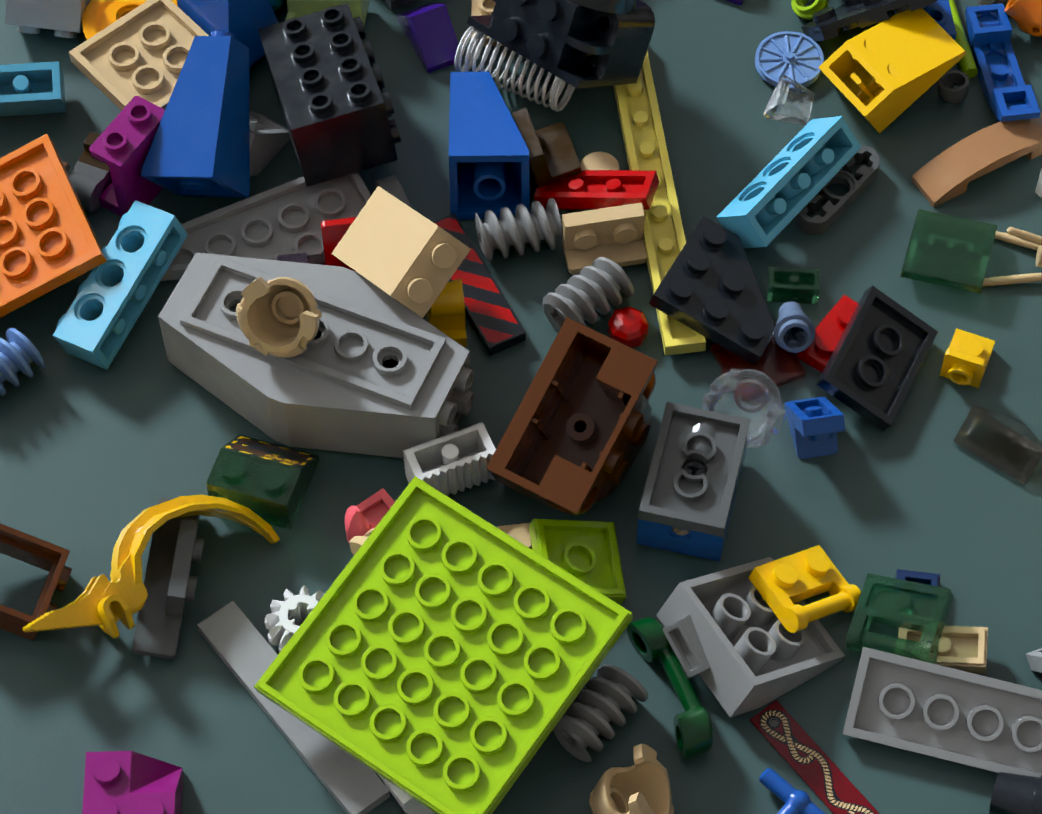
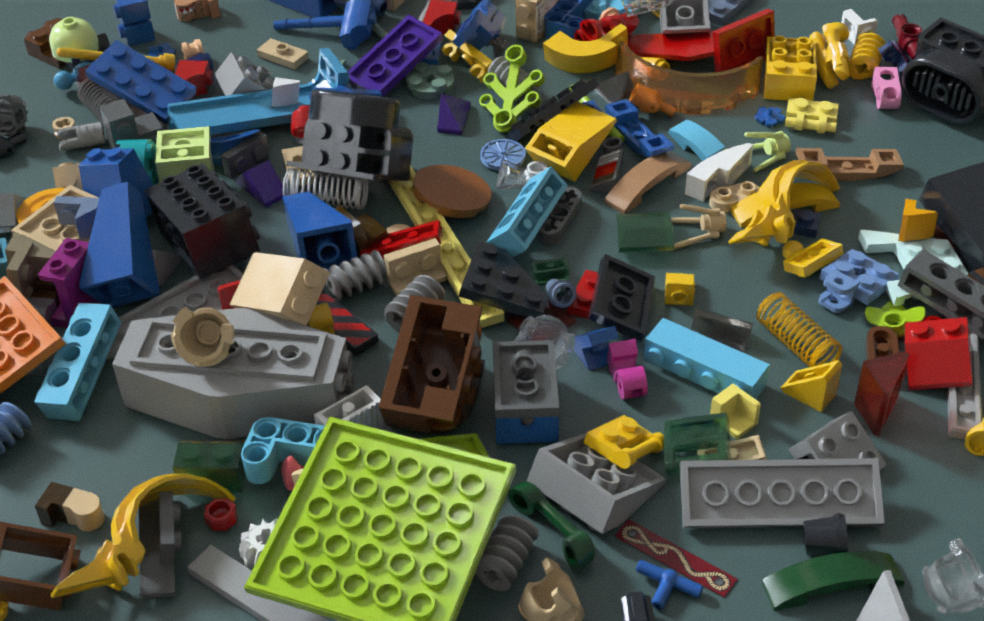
camera: 15 degrees left, 15 degrees down
(72, 499) = (70, 506): none -> leg
(80, 107) = (25, 261): none -> dark tan piece
(162, 50) = (78, 212): none -> sand blue slope
(255, 559) = (220, 514): none -> red tile
(349, 485) = (272, 442): none -> medium azure beam
(687, 646) = (556, 492): light grey piece -> none
(693, 113) = (451, 190): none -> dark orange tile
(827, 99) = (534, 168): none -> white plate
(844, 481) = (622, 365): none -> dark pink leg
(931, 127) = (607, 171): none -> slope
(959, 492) = (704, 359): none -> medium azure brick
(972, 579) = (740, 408): none -> light yellow panel

